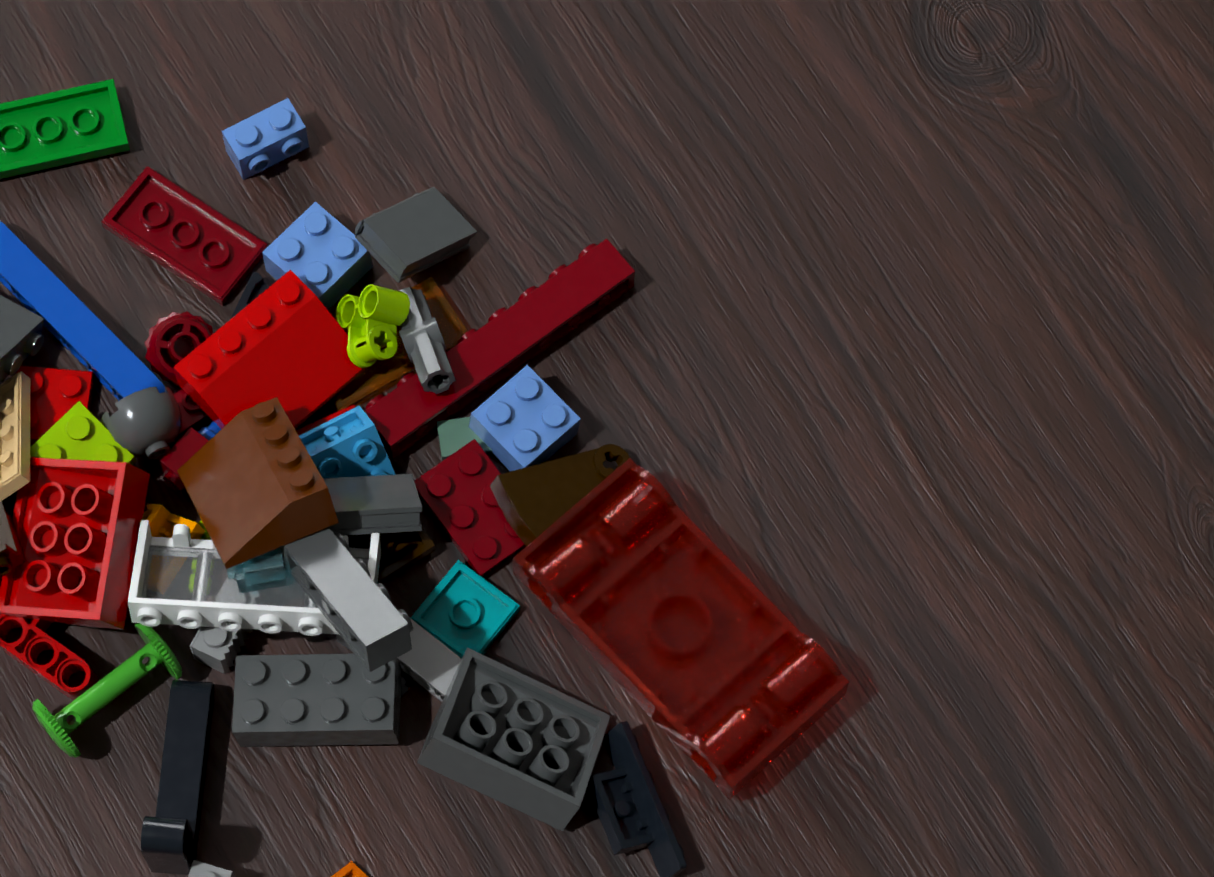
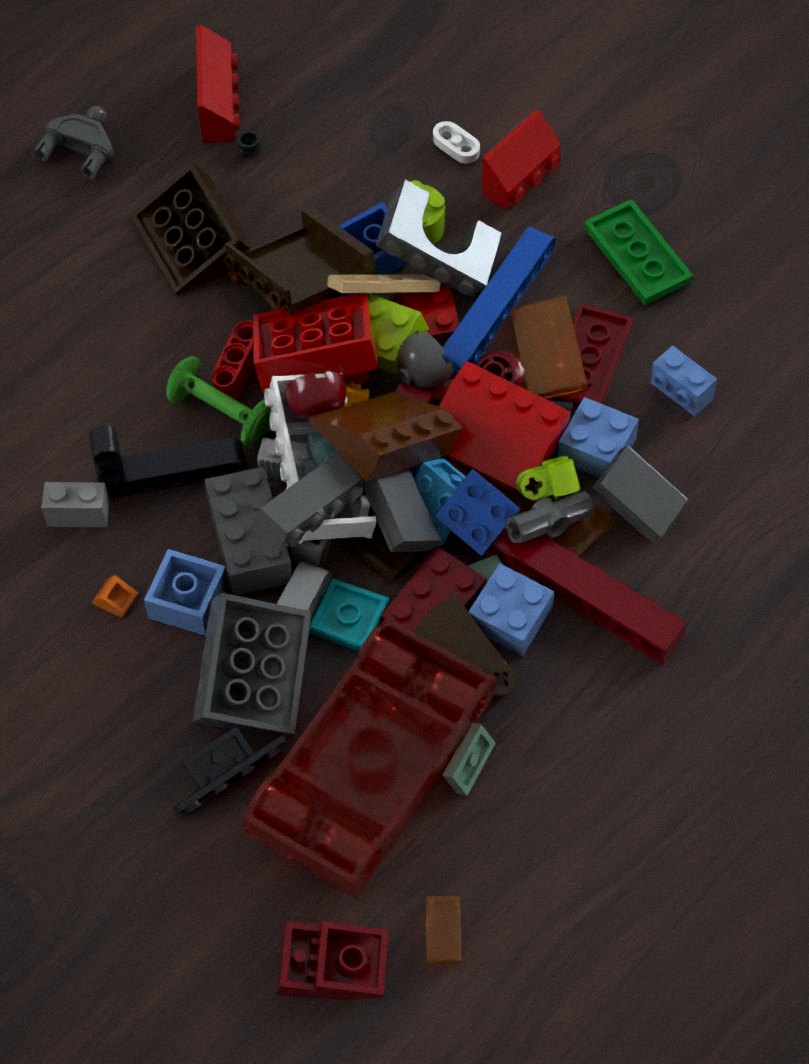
camera: 80 degrees right, 10 degrees down
(160, 275) = (548, 348): none -> clear orange tile
(179, 555) = (314, 396): none -> dark red cylinder
(383, 794) = (184, 591): none -> medium blue brick
(393, 417) = (477, 512): none -> blue hinge
(708, 525) = (469, 759): none -> sand green plate
(899, 613) = (443, 930): none -> clear orange tile
(911, 742) = (332, 961): none -> dark red slope

